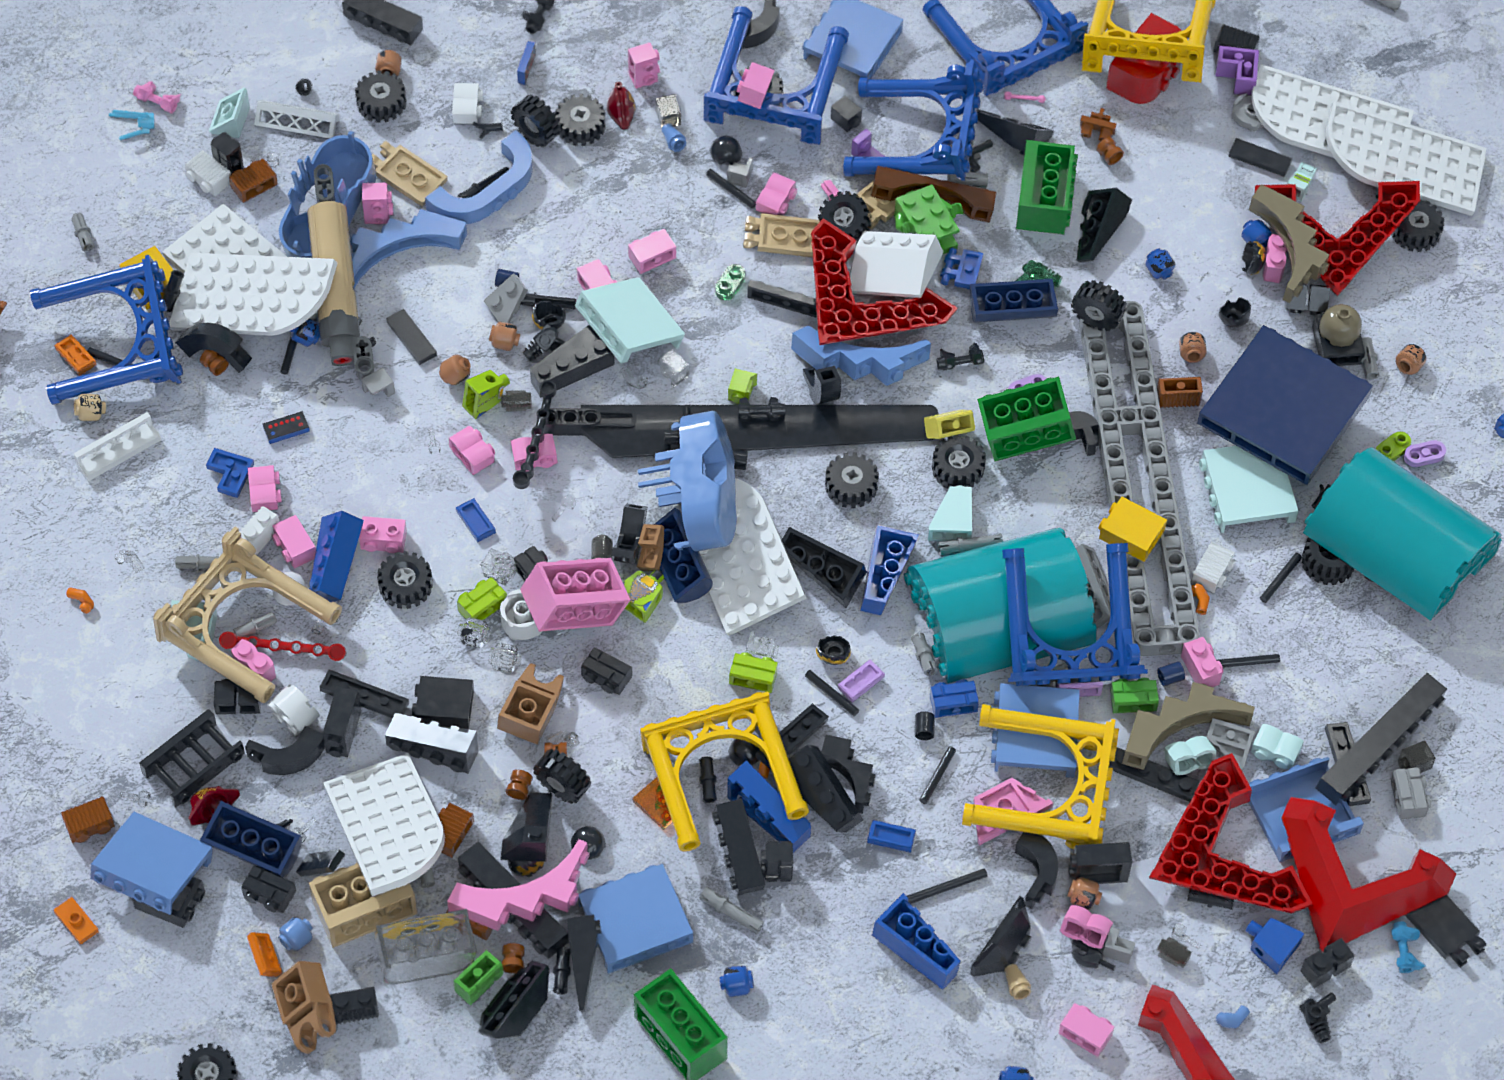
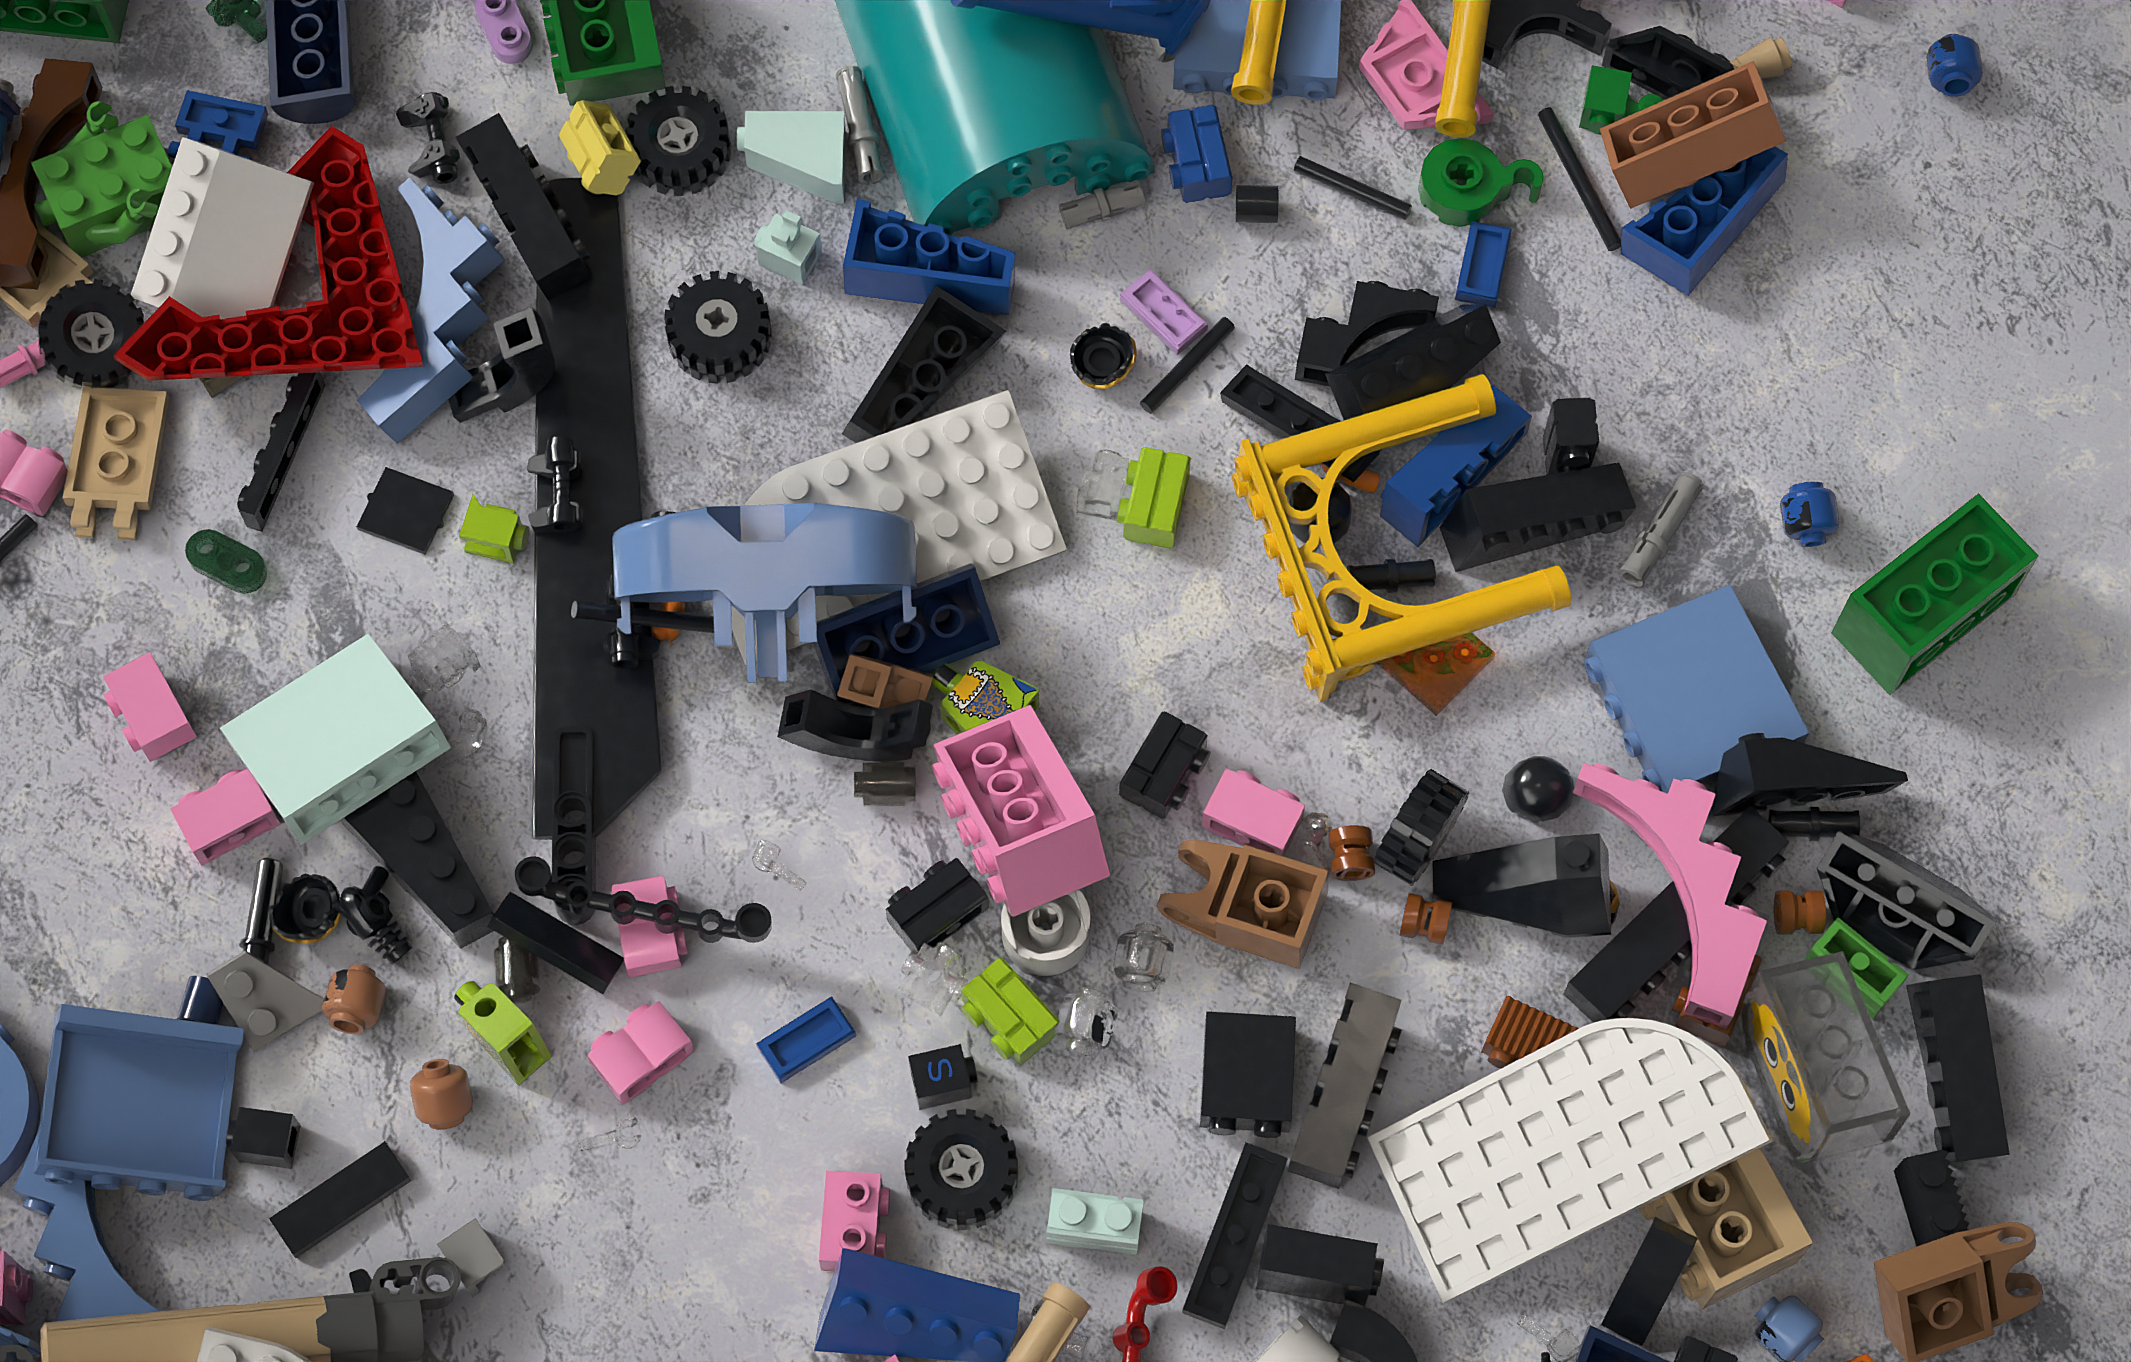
camera: 90 degrees left, 10 degrees up
(374, 633) = (1094, 1221): none -> light aqua brick
(424, 1022) = (1959, 1067): none -> black wedge
(440, 305) = (263, 1137): none -> black brick
(451, 572) = (942, 1076): none -> black brick
(456, 253) = (137, 1102): none -> medium blue panel
(525, 414) = (556, 942): none -> black tile
(578, 709) = (1253, 813): none -> bright pink brick
(756, 354) = (405, 510): none -> black piece
(896, 510) = (788, 247): none -> light aqua brick
(914, 392) = (525, 206): none -> black wedge
(939, 837) = (1485, 179): none -> green piece
(955, 925) = (1692, 135): none -> nougat brick
(988, 901) = (1609, 99): none -> green brick

